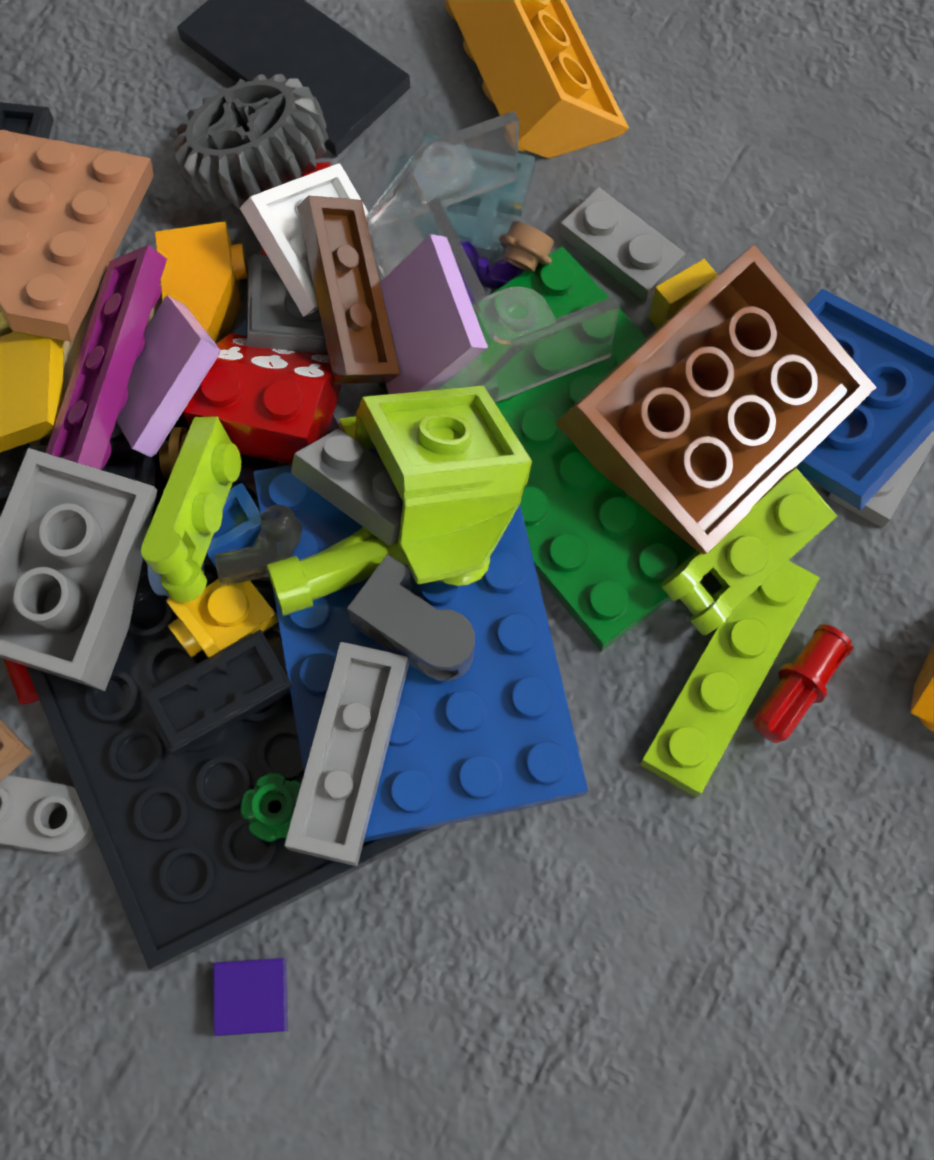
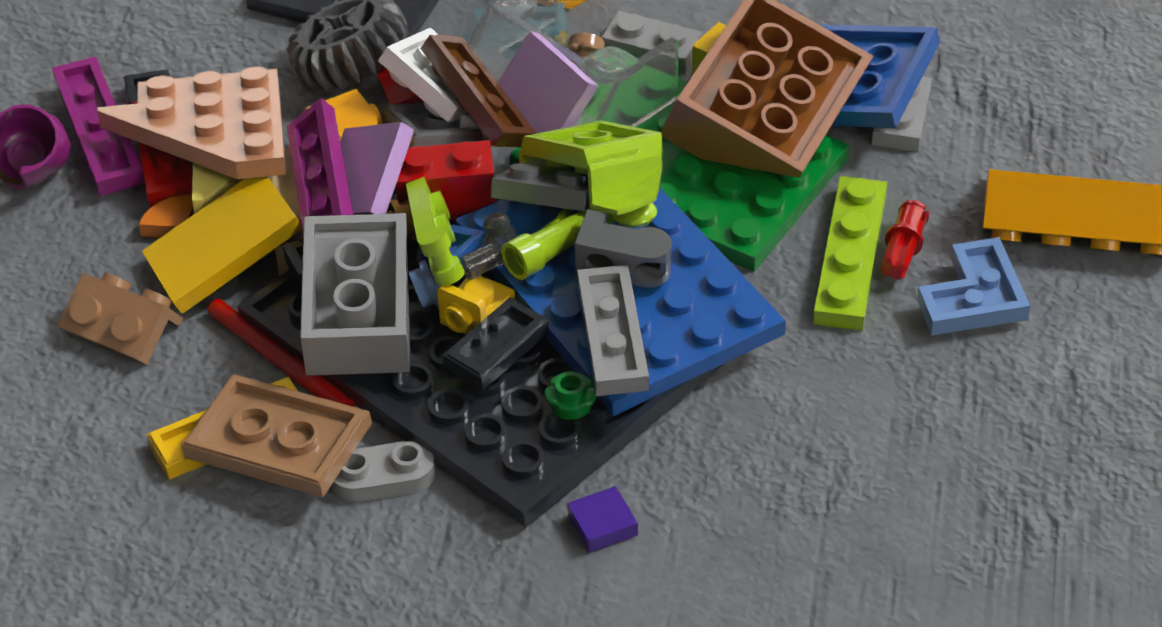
camera: 20 degrees left, 25 degrees down
(751, 551) = (831, 169): lime plate -> none
(872, 817) = (983, 295): none -> medium blue plate

